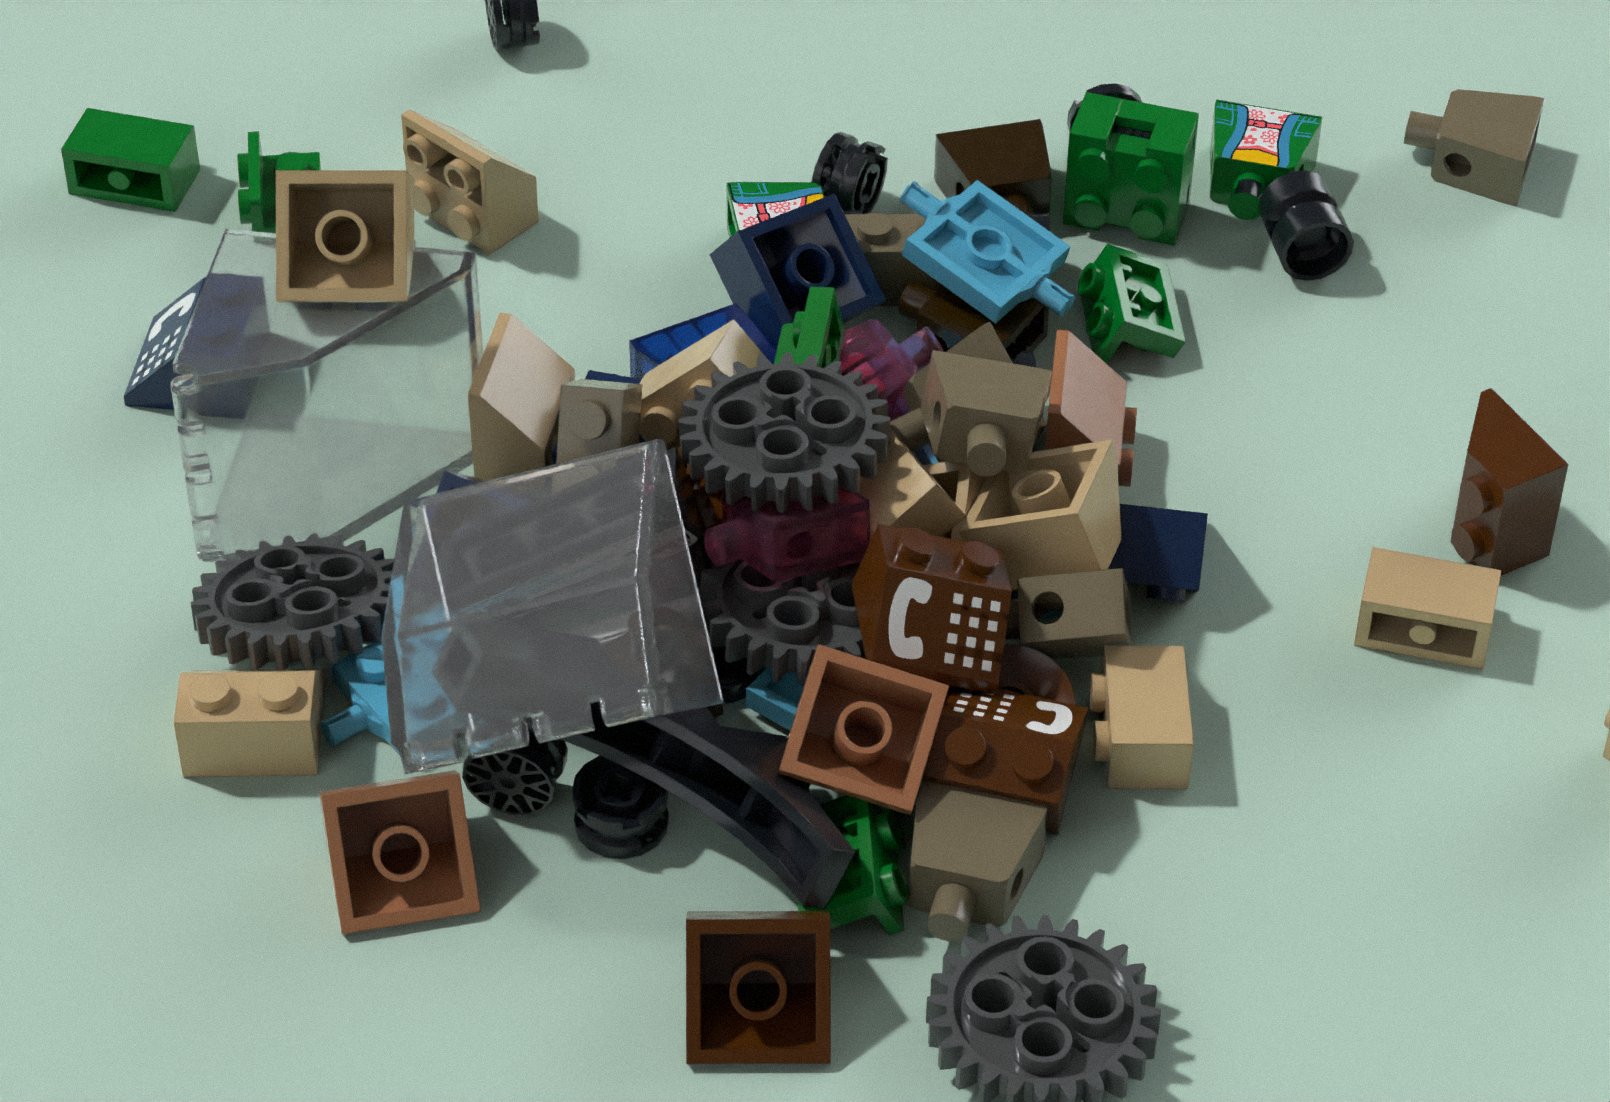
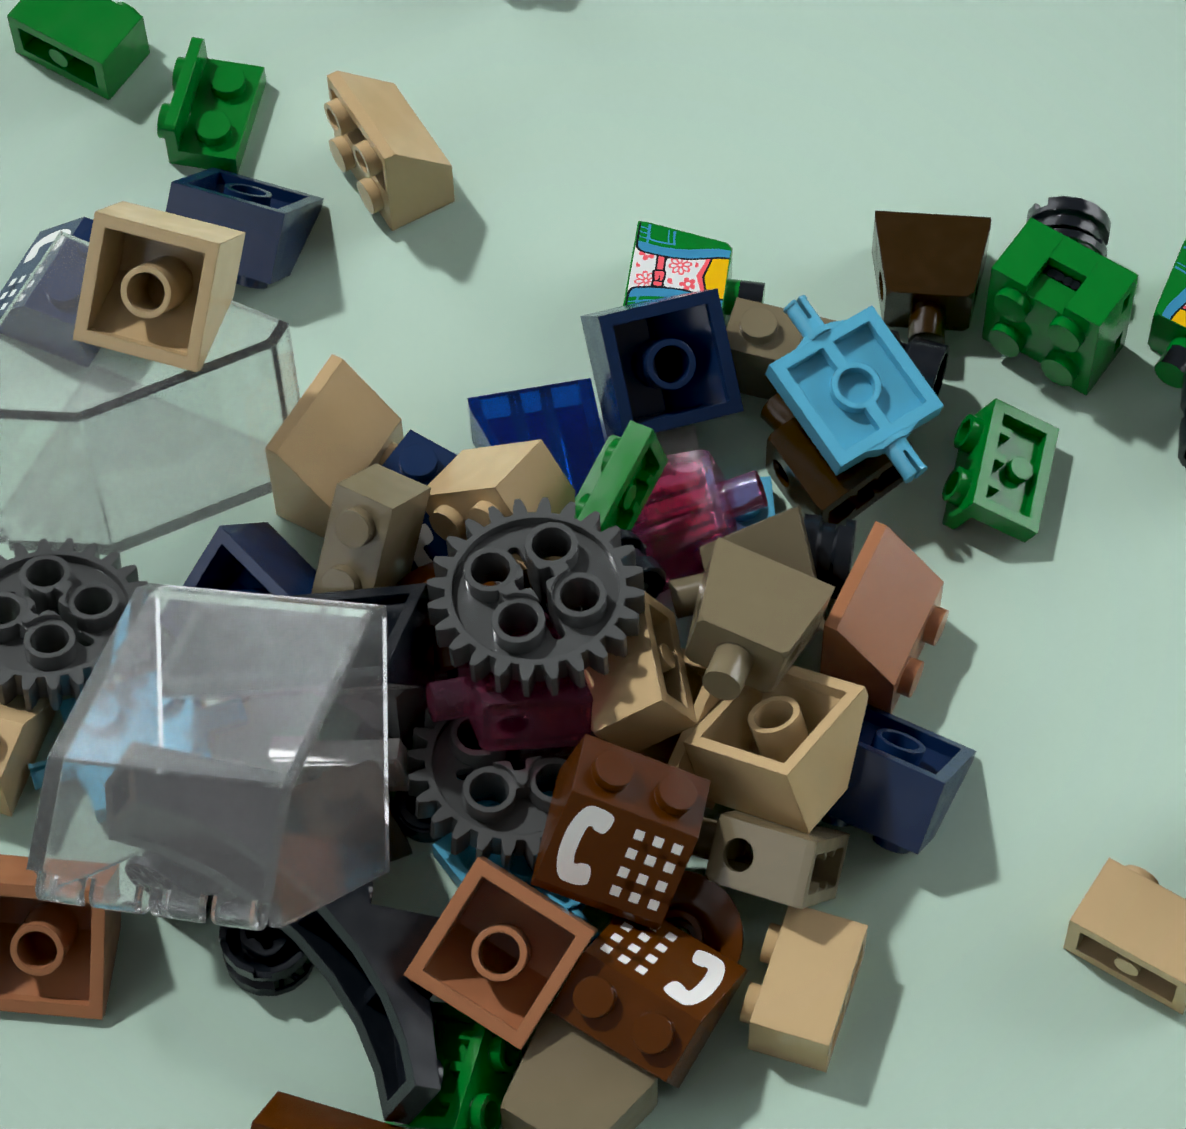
camera: 20 degrees right, 15 degrees up
(851, 172) = (772, 238): black wheel -> none

